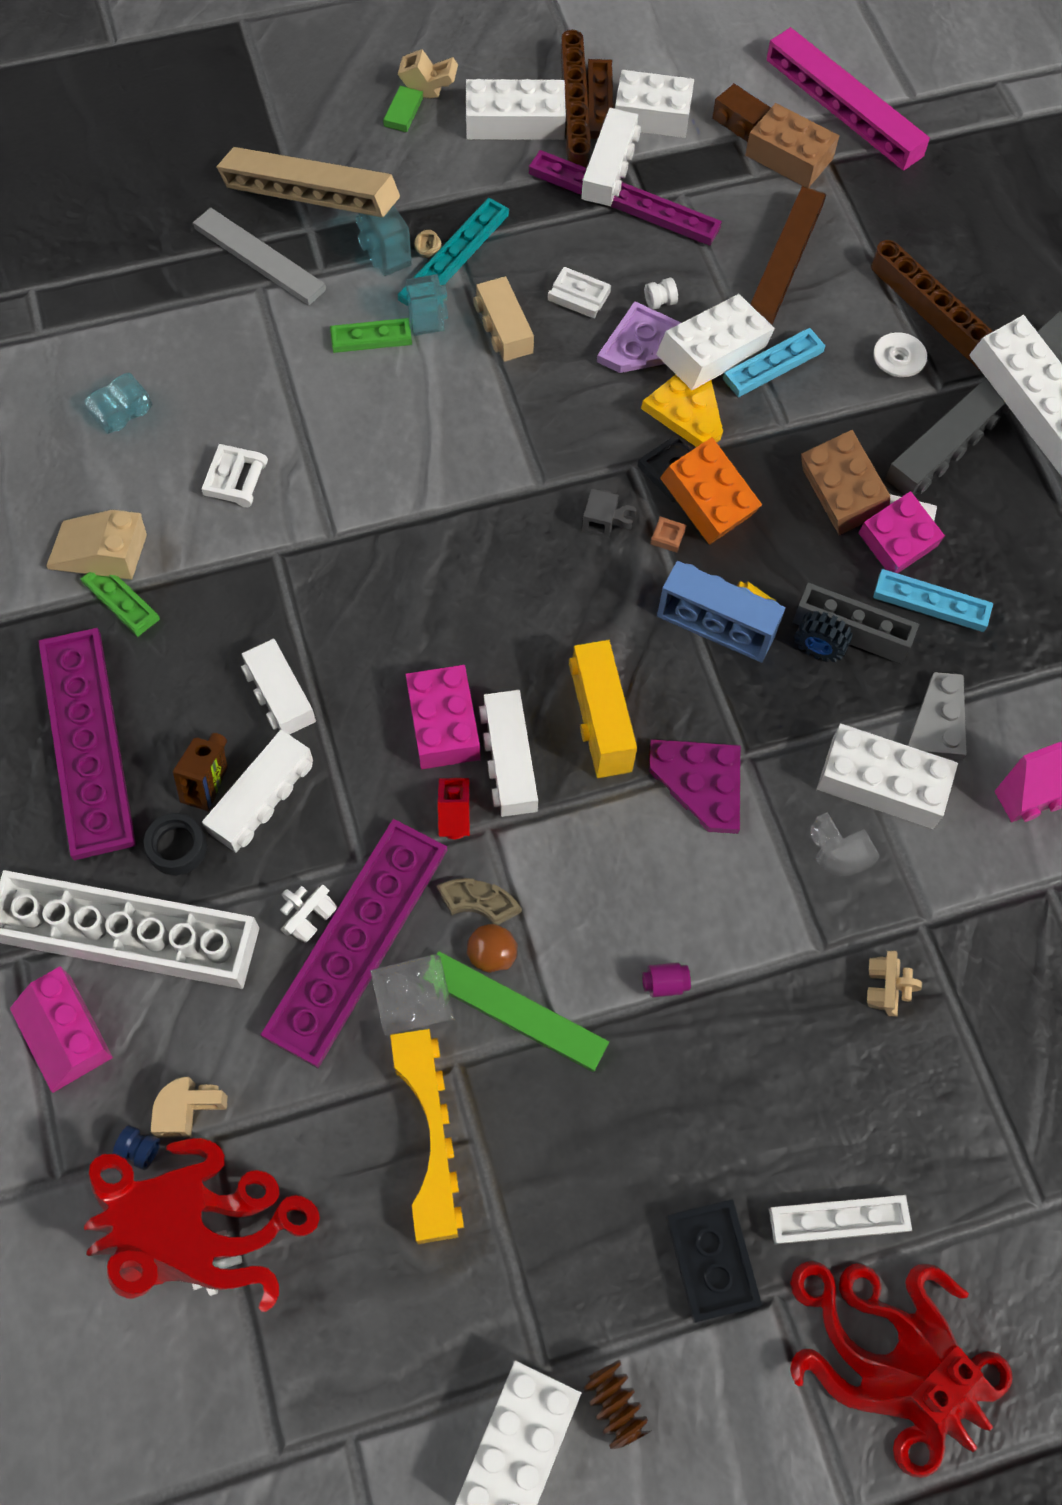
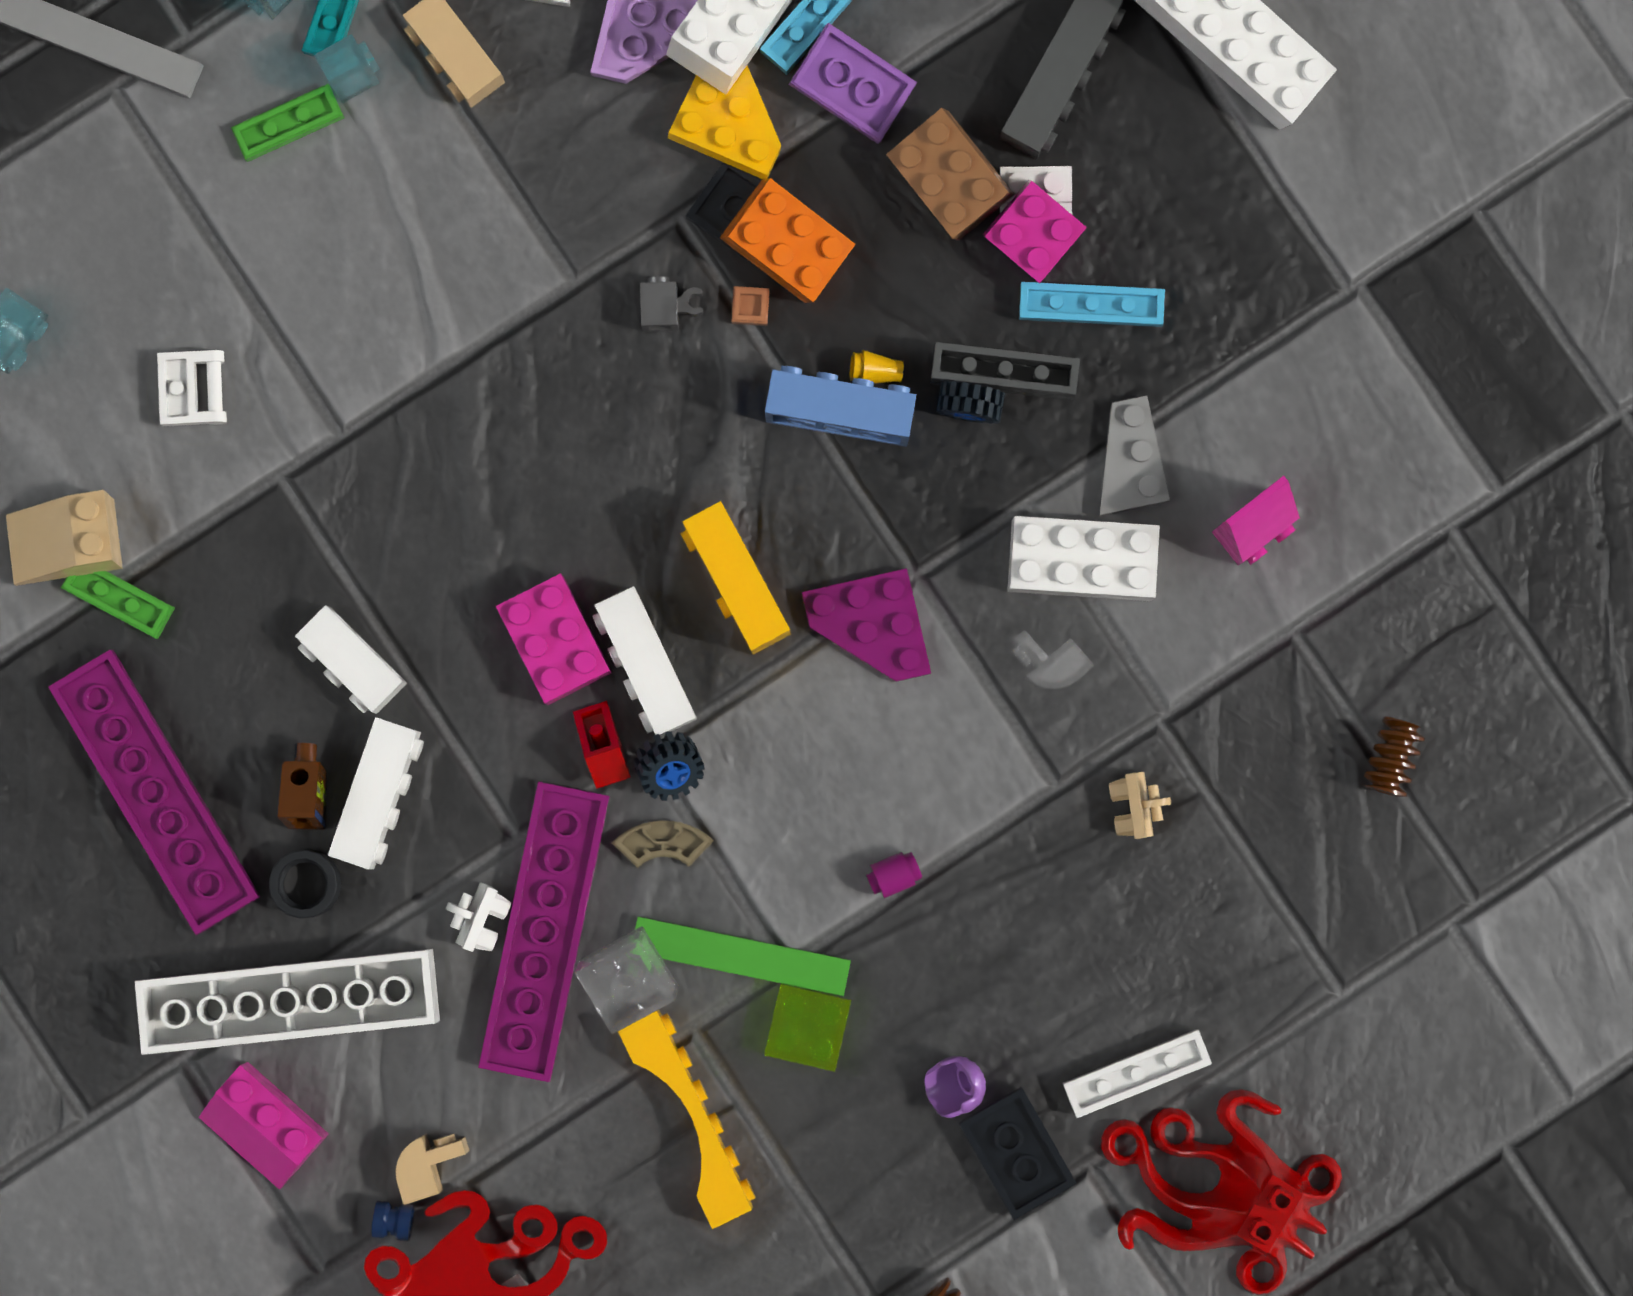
camera: 15 degrees left, 20 degrees up
(492, 948) = (694, 894): dark orange hair -> none
(511, 842) = (669, 766): none -> black wheel
(555, 1088) = (807, 1027): none -> clear neon green plate
(672, 1178) = (954, 1086): none -> medium lavender hair
(786, 411) = (852, 83): none -> medium lavender tile

